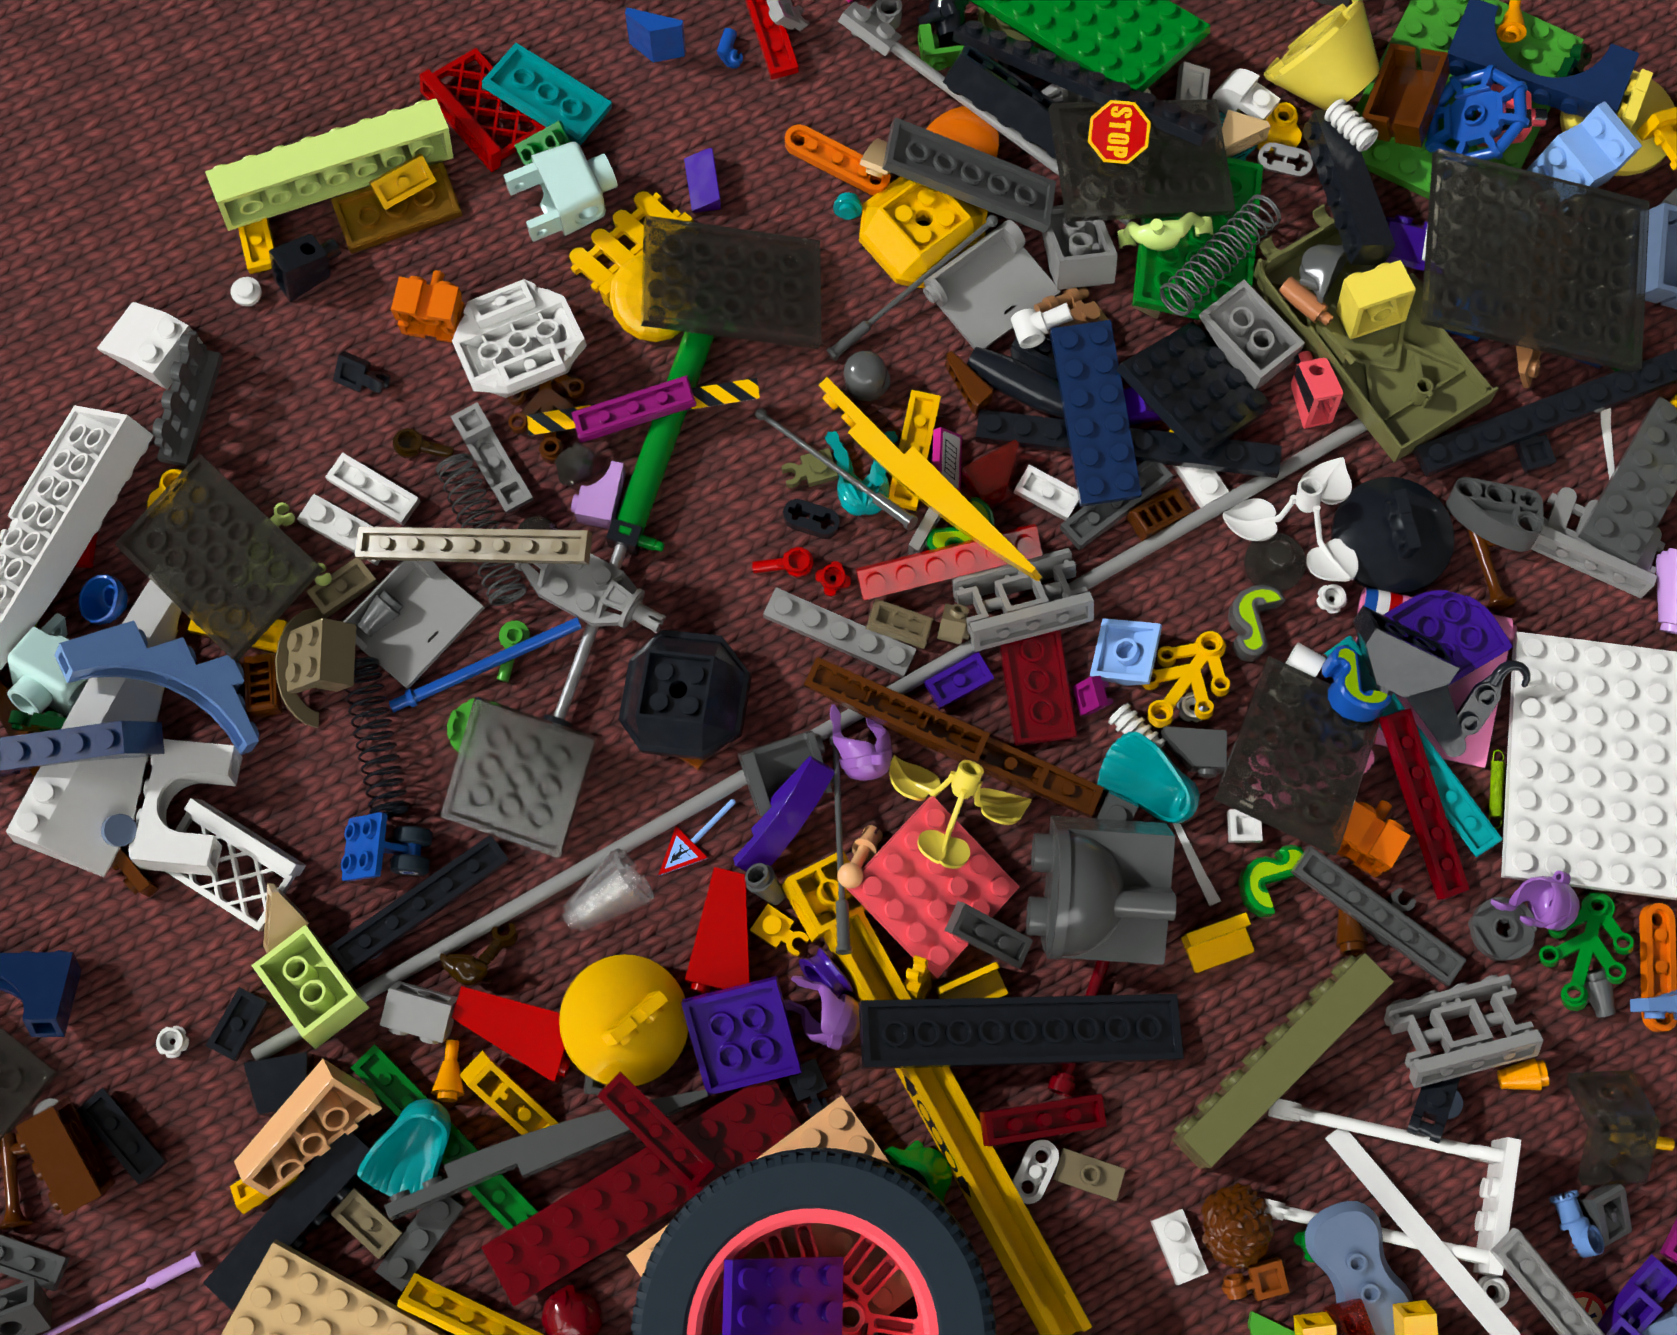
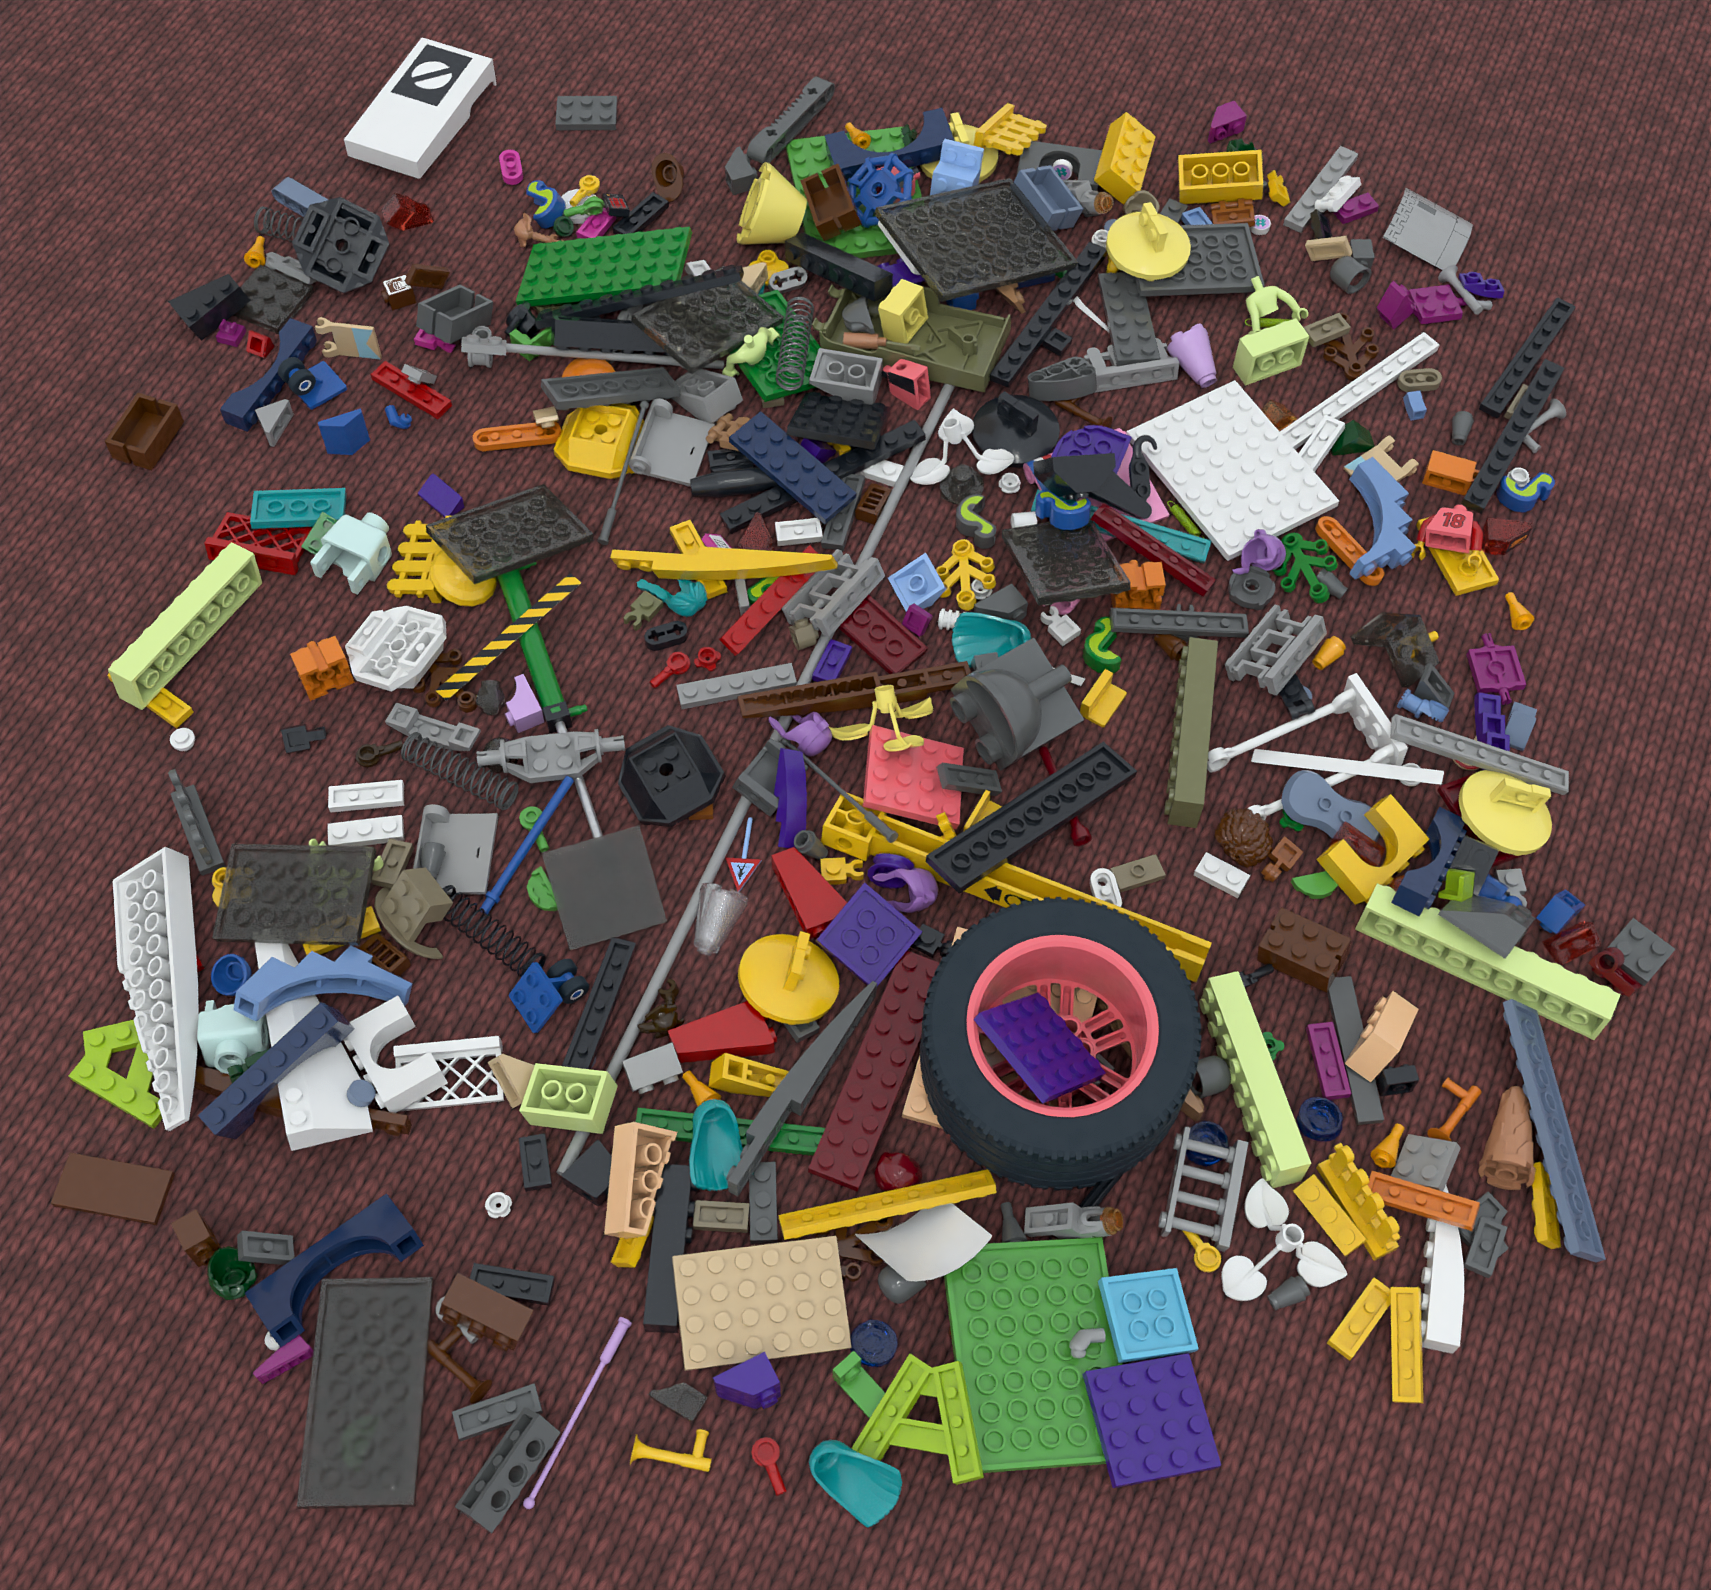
camera: 35 degrees left, 15 degrees down
(146, 342) = (140, 806): white slope -> none
(302, 264) = (211, 698): black torso -> none
(368, 224) = (247, 631): pearl gold tile -> none
(402, 181) = (242, 609): yellow plate -> none
(474, 545) = (466, 770): plate -> none
(633, 409) = (505, 639): magenta tile -> none
(655, 1130) = (862, 1019): dark red plate -> none
(847, 206) = (545, 456): teal plate -> none
(864, 849) = (857, 789): light nougat pin -> none
(865, 376) = (634, 535): dark grey helmet -> none
(899, 623) = (769, 655): dark tan plate -> none
(908, 520) = (703, 586): dark grey piece -> none
(971, 386) = (700, 503): reddish brown slope -> none
(1032, 325) = (716, 447): white pin -> none
(1042, 1119) = (1086, 856): dark red plate -> none
(1119, 132) = (685, 305): piece -> none
(1245, 94) = (734, 255): white brick -> none
(1351, 125) = (813, 233): white piece -> none

